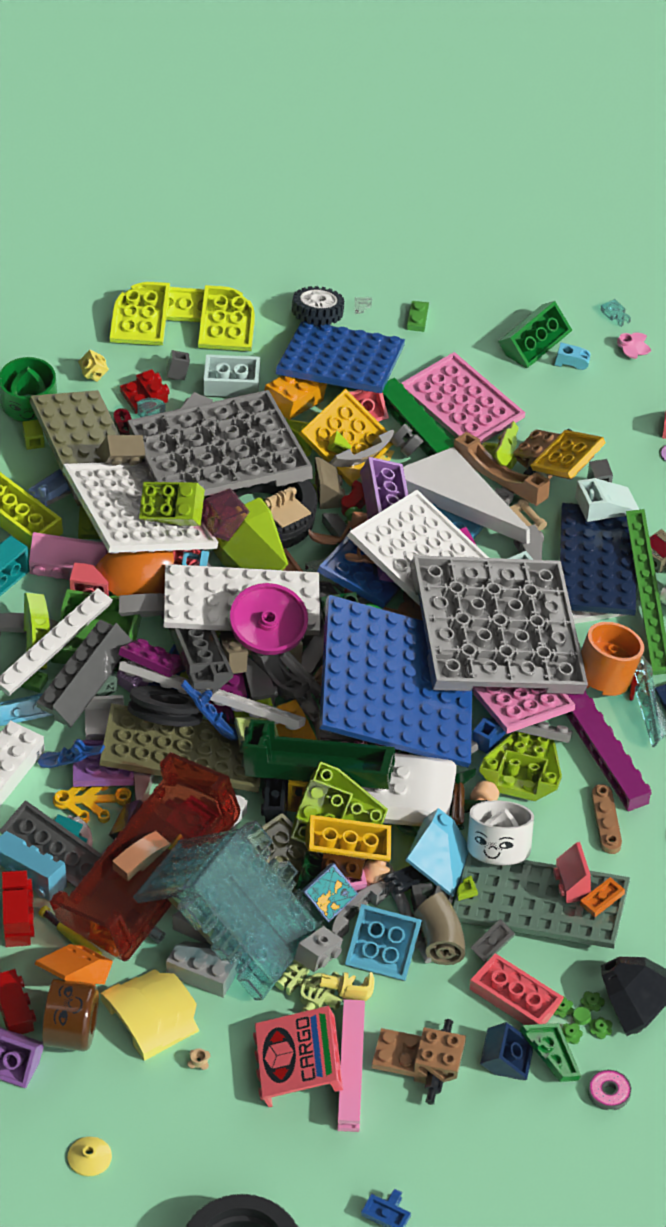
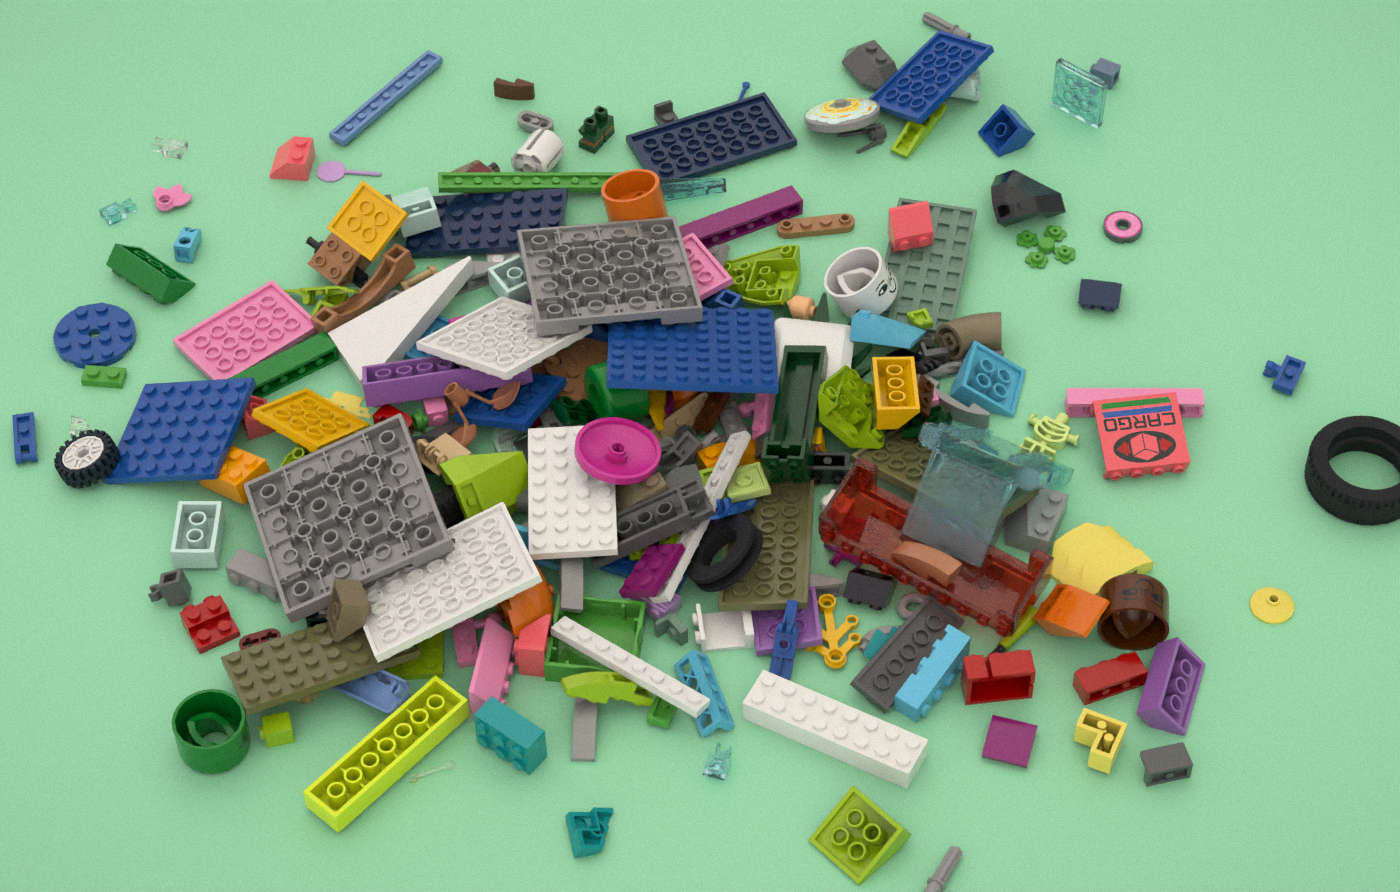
camera: 90 degrees left, 0 degrees up
(84, 673) = (673, 635): dark grey slope -> none
(93, 365) = (159, 670): light yellow brick -> none
(150, 406) = (244, 614): clear light blue brick -> none
(172, 503) = (461, 529): lime slope -> none
(199, 1054) = (1146, 521): tan plate -> none
(223, 312) = (63, 623): neon yellow plate -> none
(223, 514) = (462, 496): clear pink slope -> none
(319, 949) = (1010, 425): light grey brick -> none
(330, 892) = (952, 408): tile -> none
(338, 443) = (331, 419): lime slope -> none
(346, 988) = (1047, 400): light yellow piece -> none
(347, 458) = (333, 398): light grey slope -> none
(348, 272) = (24, 437): none -> blue plate
(411, 445) = (314, 373): dark grey wheel -> none
(427, 1058) = (1118, 346): medium nougat piece -> none
(448, 309) = (74, 333): none -> blue plate
(458, 803) = (831, 317): reddish brown axle -> none
(492, 941) = (976, 298): dark grey plate -> none
(515, 992) = (1031, 287): coral slope -> none
(553, 1049) = (1091, 260): green wing -> none
(602, 897) = (938, 215): orange plate -> none

